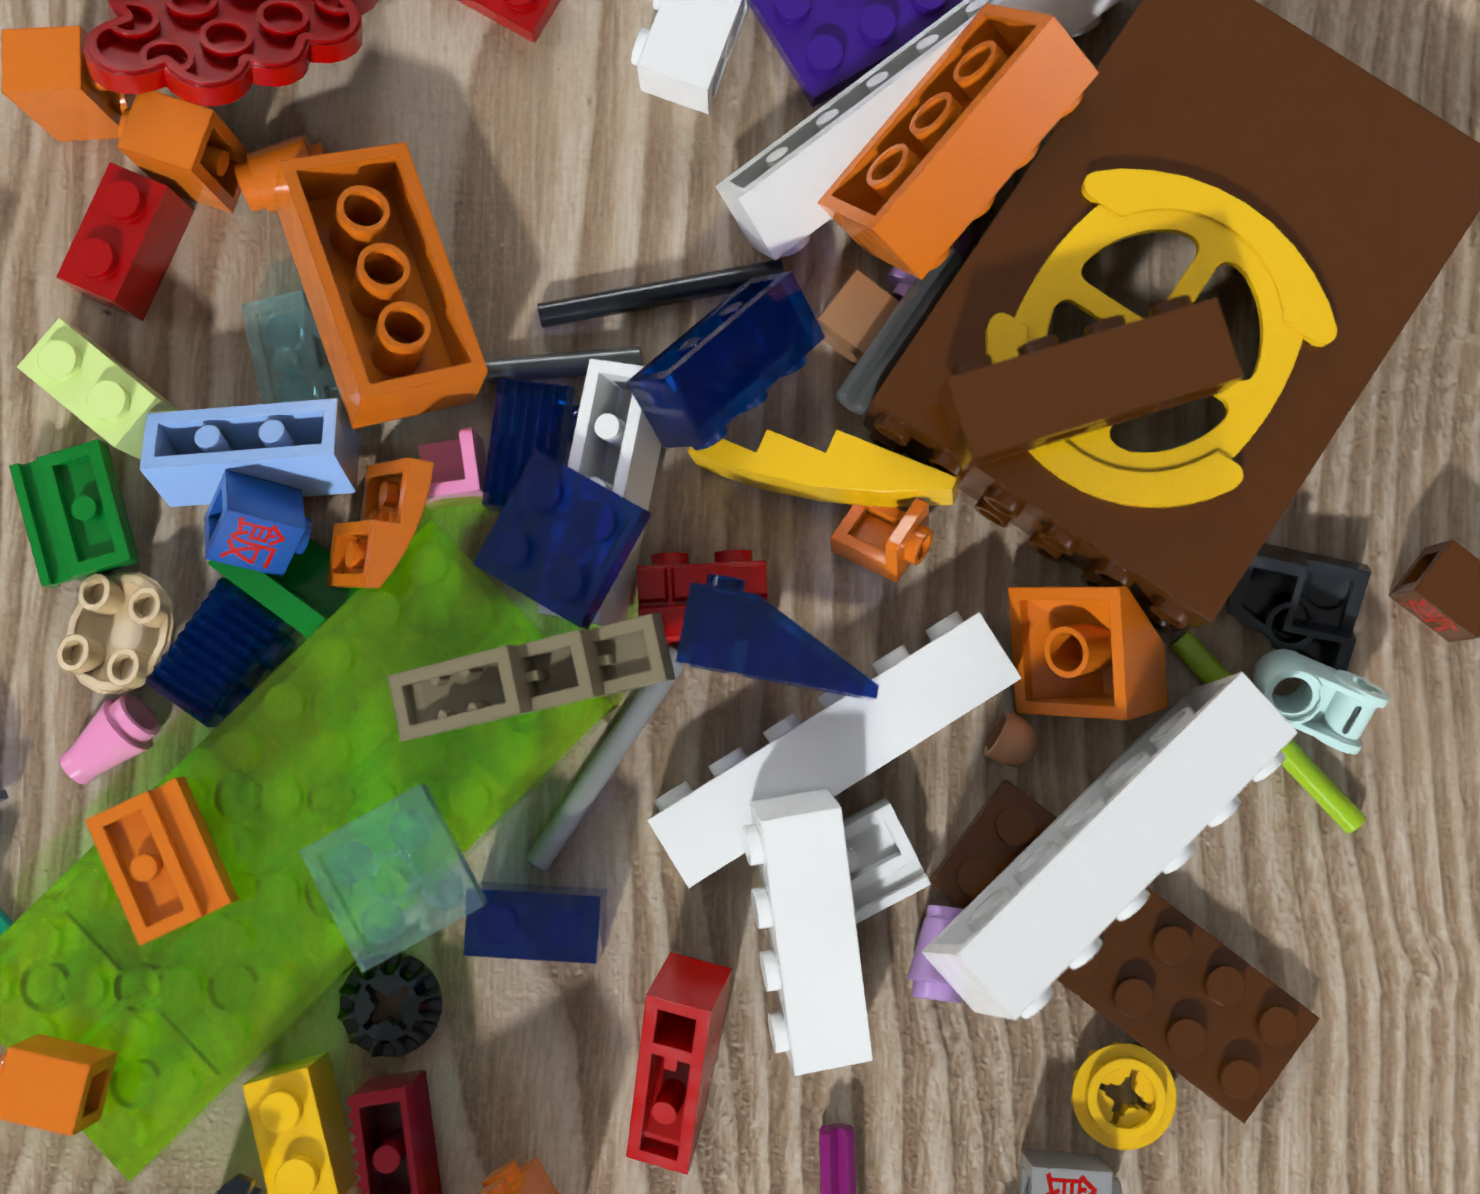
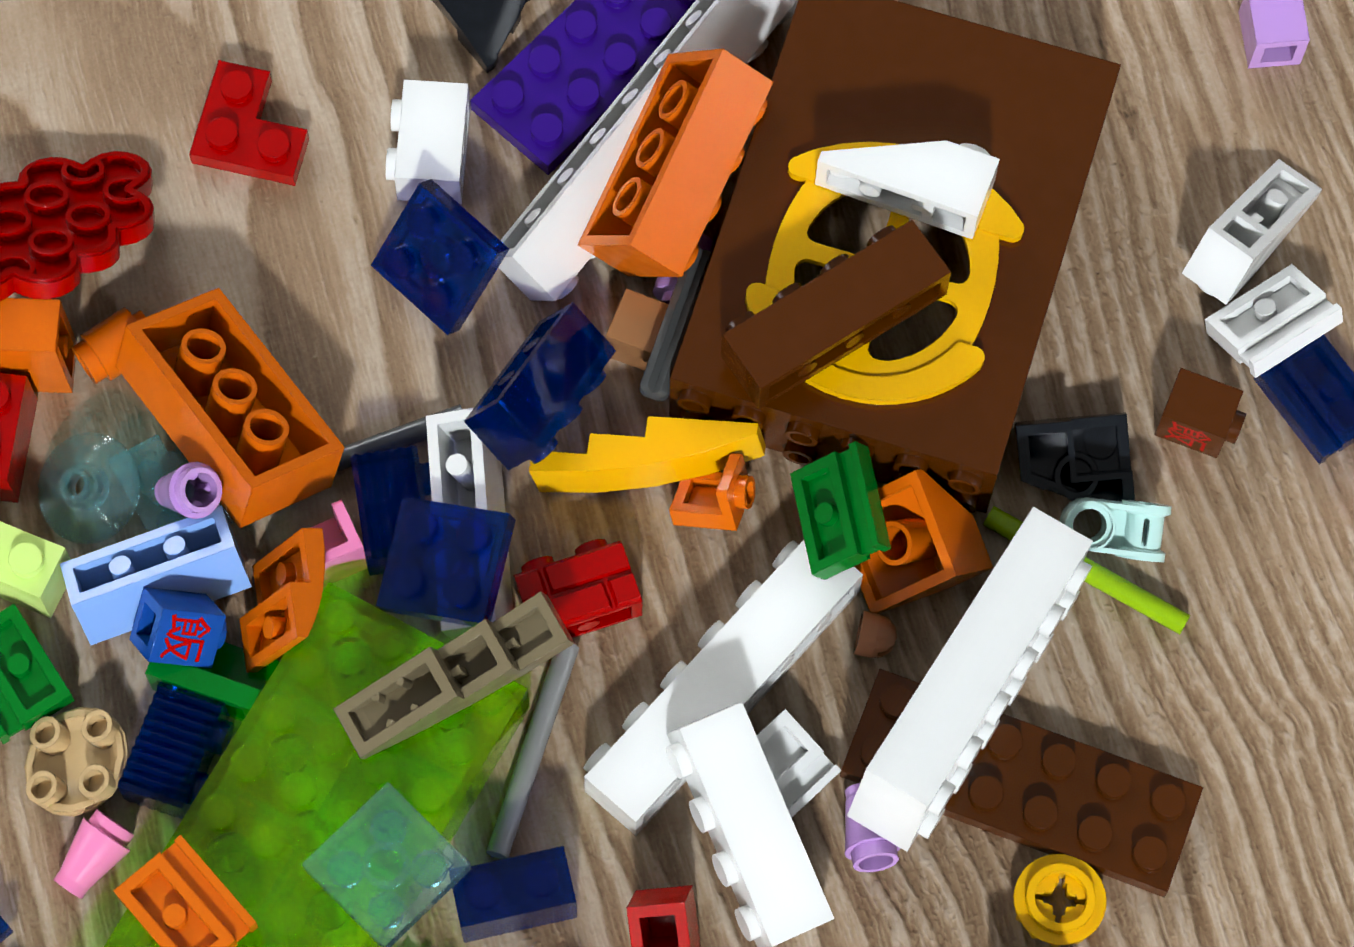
camera: 20 degrees left, 15 degrees down
(214, 329) = (108, 490): none -> clear light blue dish
(314, 384) = (190, 490): none -> lavender cone
(652, 294) = (454, 361): black bar -> none
(662, 171) = (439, 256): none -> clear blue plate
(752, 639) = (635, 599): clear blue slope -> none
(1019, 606) = (840, 511): none -> green plate
(1240, 247) = (923, 181): none -> white slope

